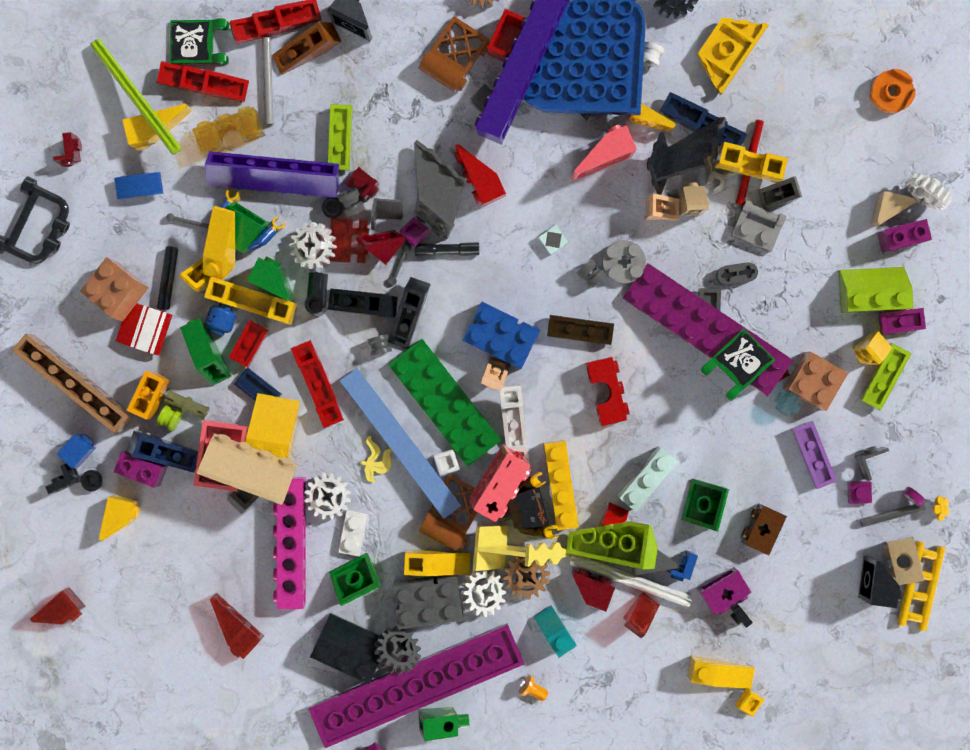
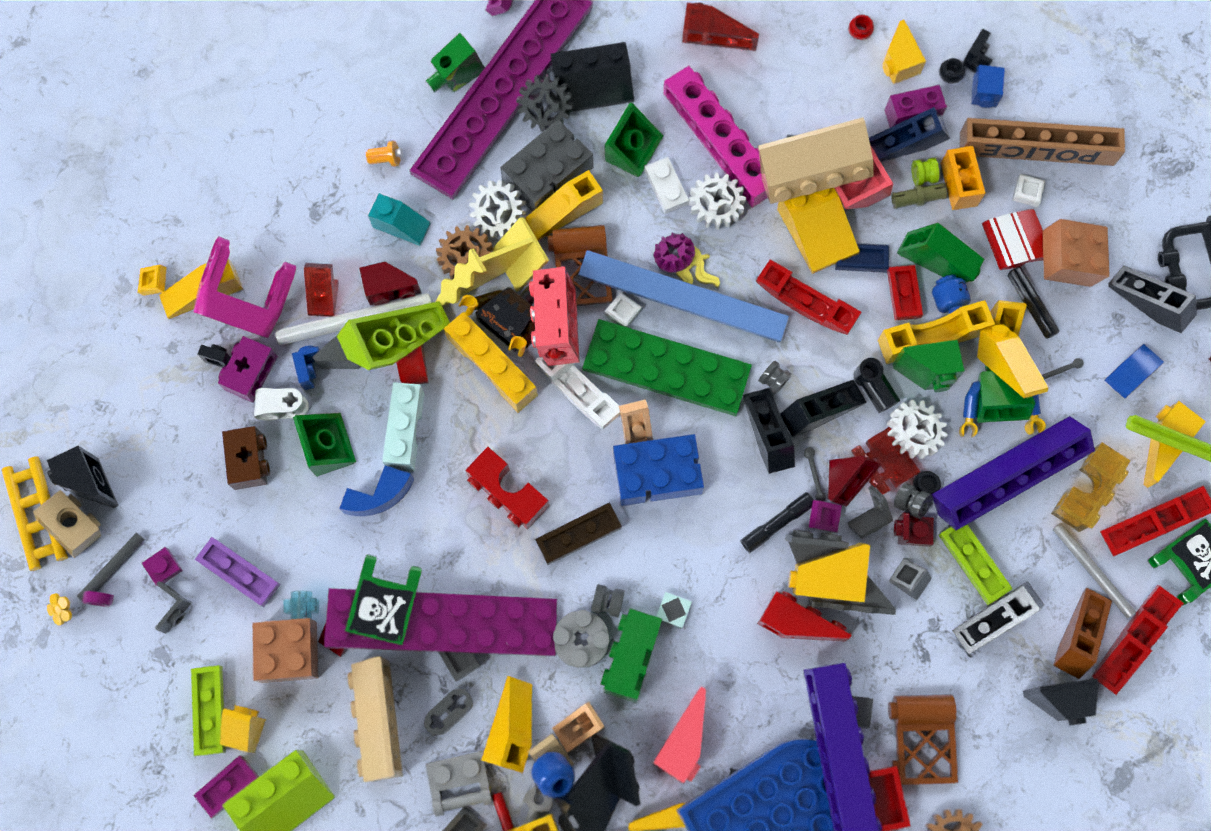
camera: 145 degrees right, 15 degrees down
(85, 224) = (1155, 298): none -> black slope
(107, 357) = (1028, 190): none -> white tile
(124, 560) = (861, 21): none -> red plate
(351, 92) = (998, 617): none -> slope
(376, 473) = (670, 262): none -> magenta gear
(388, 156) = (910, 578): none -> dark grey slope
(441, 188) = (833, 575): none -> yellow slope
(601, 228) = (631, 655): none -> green wedge
(682, 442) = (389, 491): none -> blue brick
(703, 184) = (553, 774): none -> blue head
(705, 235) = (511, 728): none -> yellow slope
(708, 634) = (236, 311): none -> dark pink connector
(720, 553) = (275, 404): none -> white piece
(786, 296) = (375, 720): none -> tan slope

